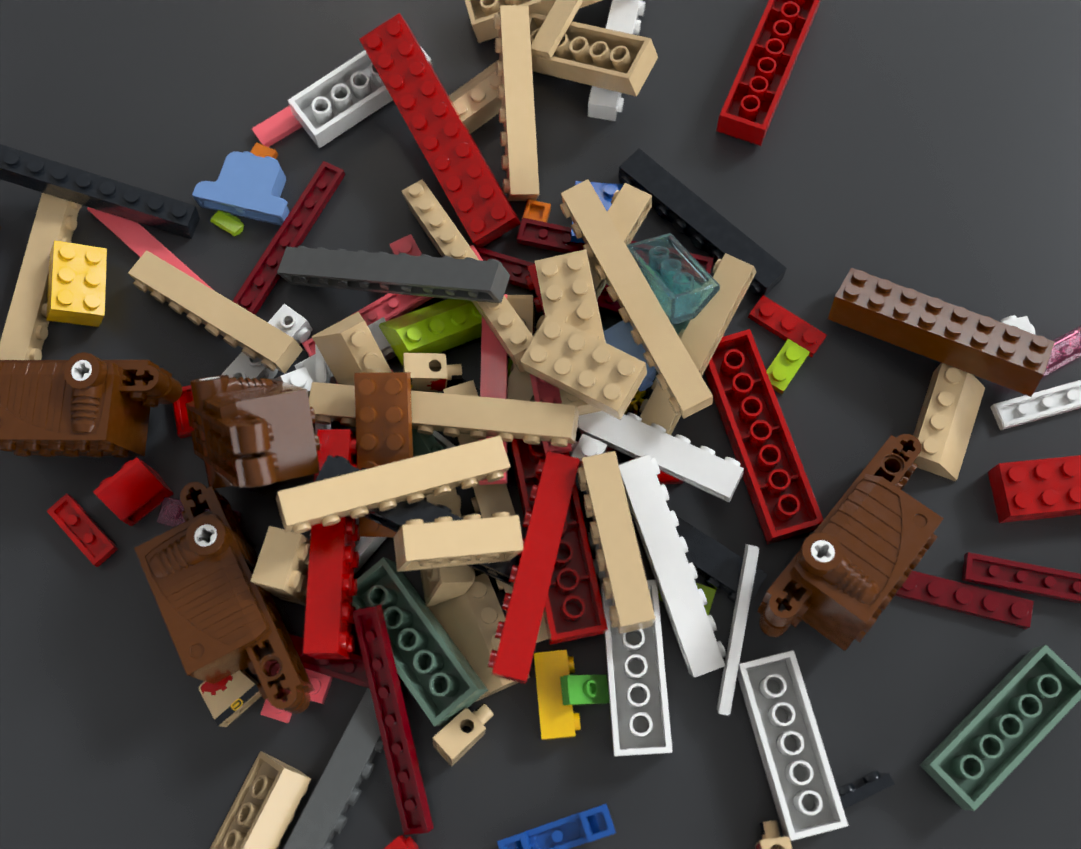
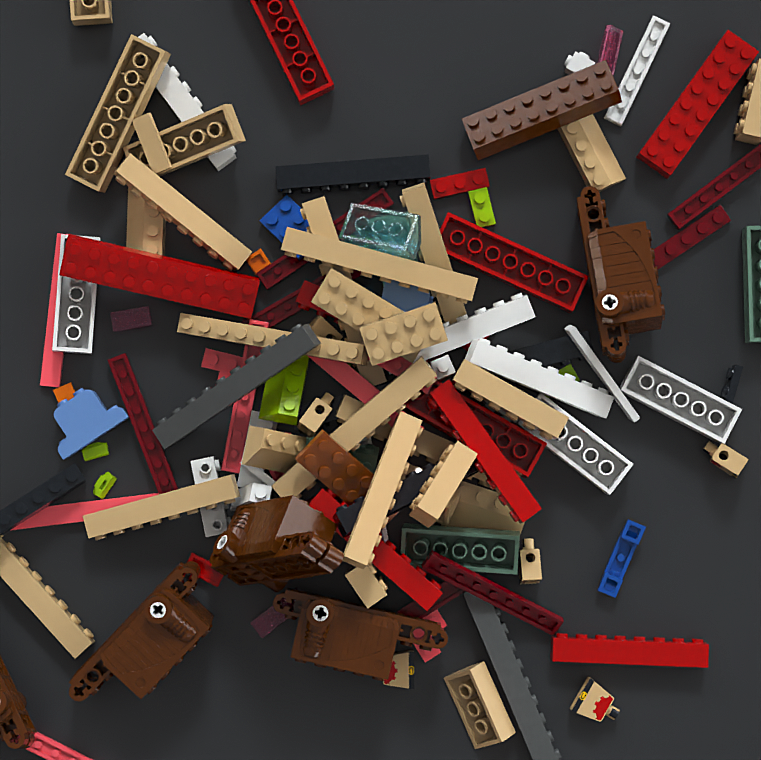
camera: 60 degrees left, 15 degrees up
(76, 284) = (65, 574): yellow brick -> none
(82, 530) = (229, 684): red plate -> none
(133, 491) = (235, 637): red slope -> none
(201, 255) = (103, 485): none -> lime piece
(381, 151) = (131, 319): none -> clear pink plate
(555, 719) = (552, 497): yellow brick -> none
(584, 689) = (562, 480): bright green plate -> none

